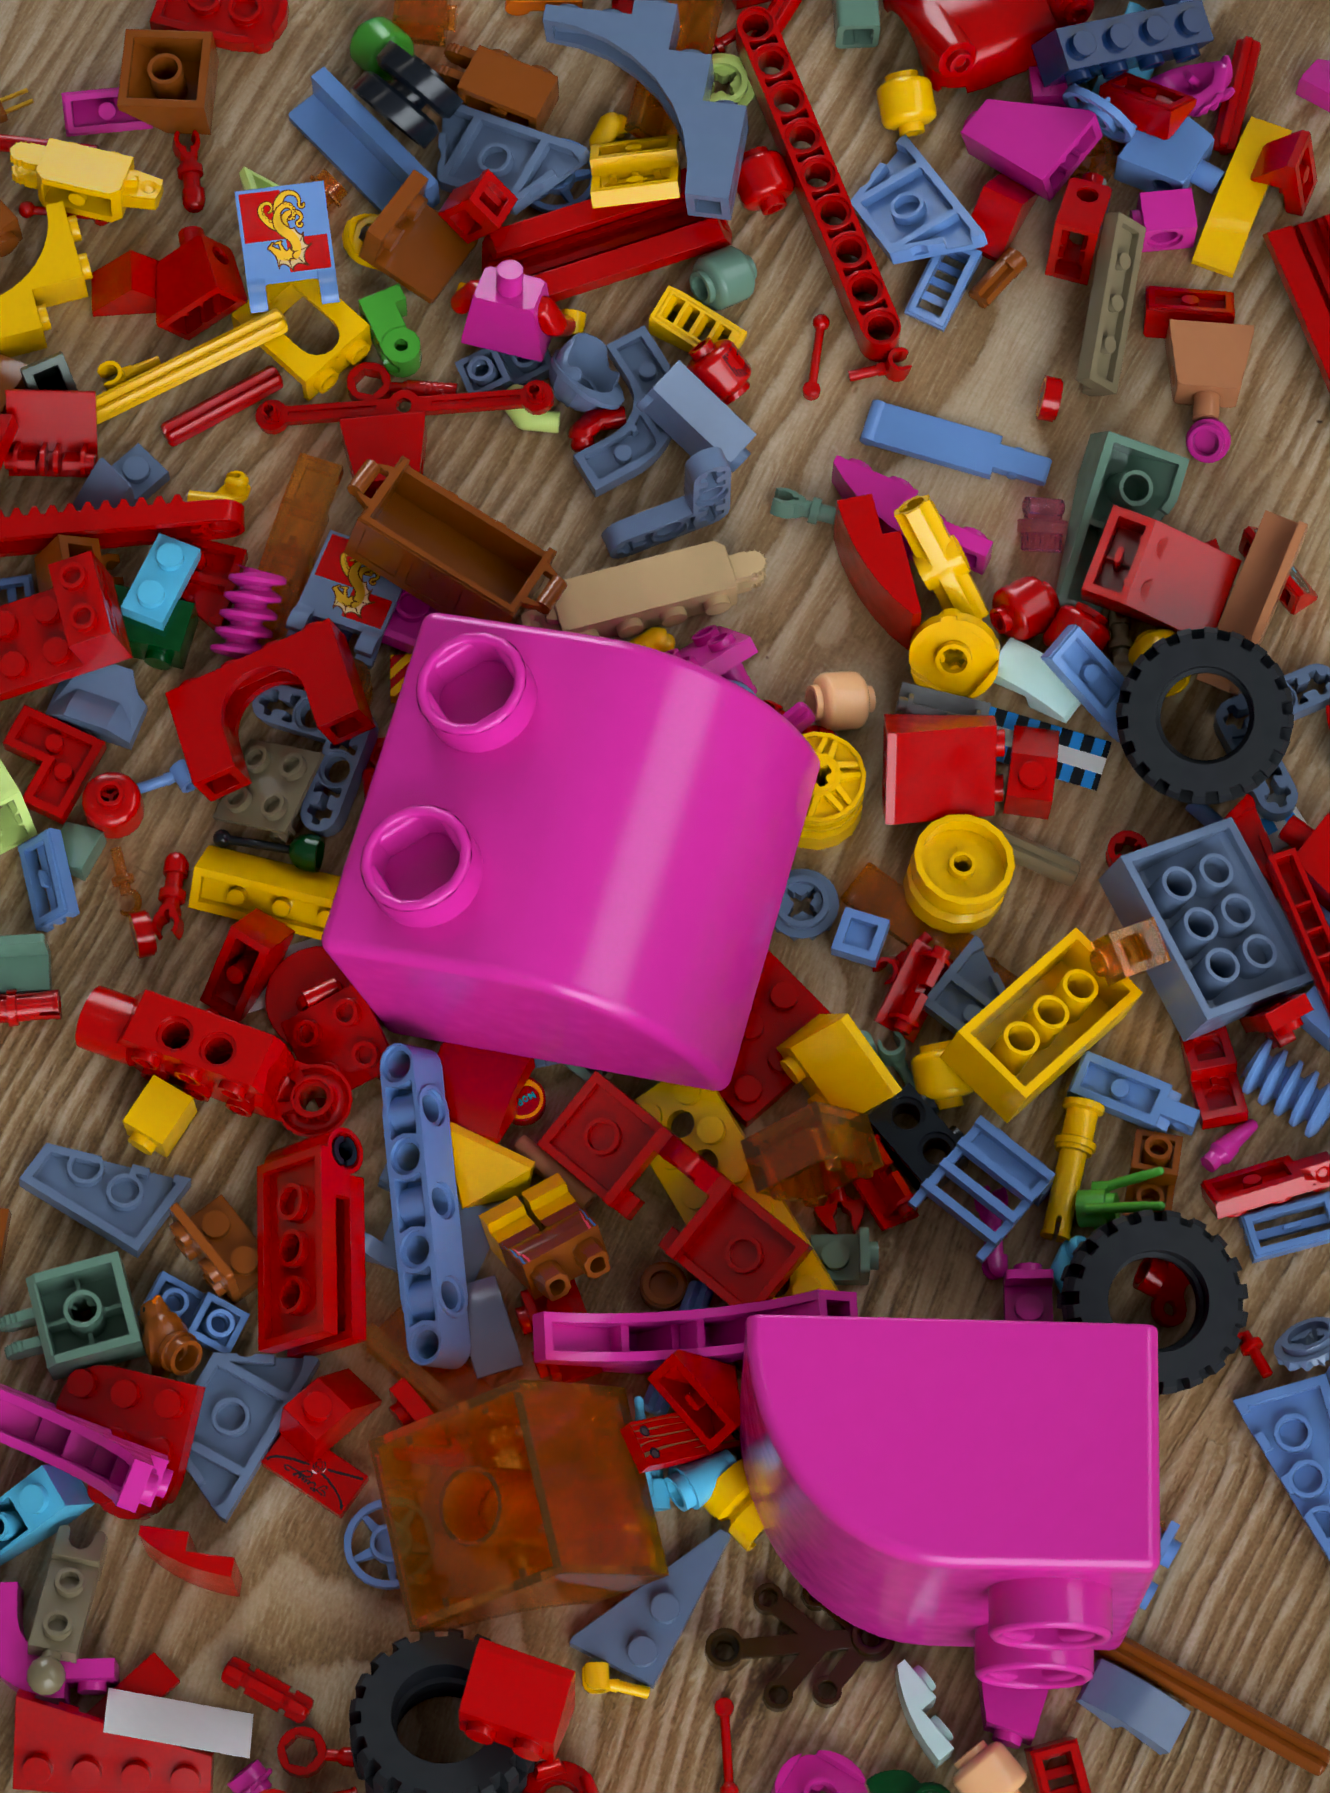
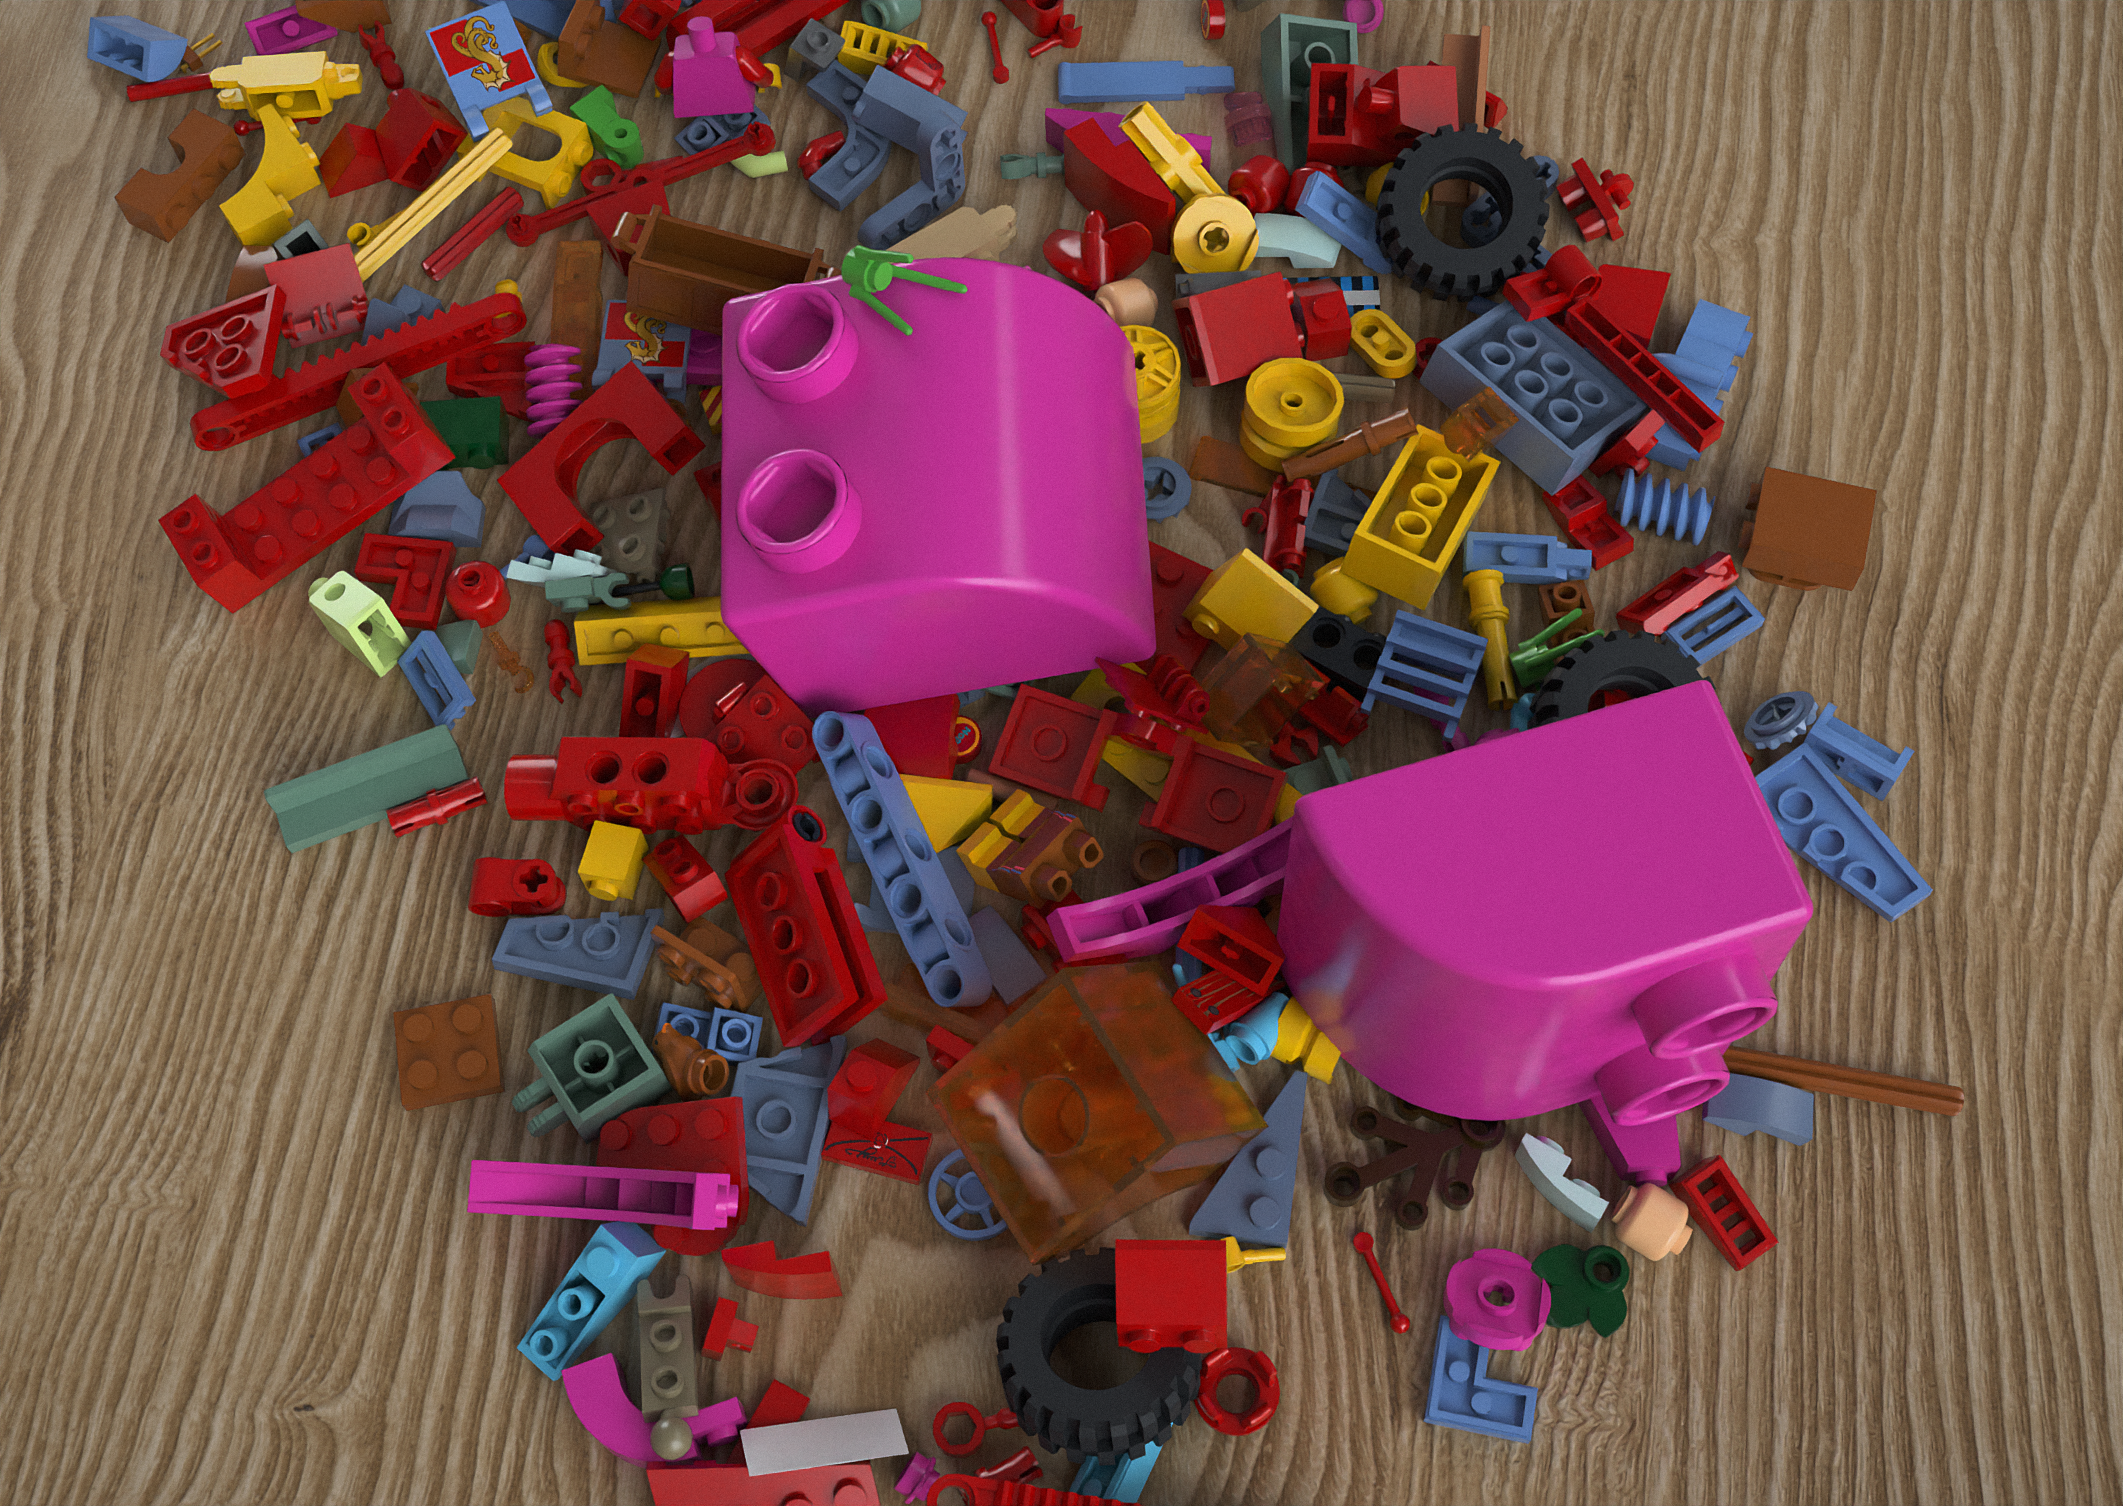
camera: 15 degrees left, 5 degrees down
(53, 1112) = (507, 888): none -> red piece
(125, 1596) = (727, 1331): none -> red tile
(142, 934) = (543, 701): red tile -> none
(161, 581) = (461, 386): medium azure plate -> none
(200, 808) = (562, 567): none -> light aqua slope
(205, 837) = (576, 593): none -> sand green plate
(220, 1156) = (685, 877): none -> red plate
(267, 1690) = (902, 1378): red axle -> none
(315, 797) = (693, 520): sand blue beam -> none
(569, 646) = (869, 271): none -> bright green plant
(583, 375) = (793, 112): sand blue piece -> none
(627, 310) = (812, 49): none -> flat silver bracket
(715, 1131) = (1164, 692): none -> red hinge
(825, 632) = (1099, 253): none -> red piece
(860, 937) = (1221, 498): medium blue tile -> none
(1009, 929) = (1348, 447): none -> dark orange pin
(1082, 826) = (1388, 350): none -> yellow plate
(1202, 583) = (1412, 103): none -> red torso
(1227, 1147) = (1625, 577): dark pink piece -> none
(1268, 826) = (1556, 287): none -> red plate

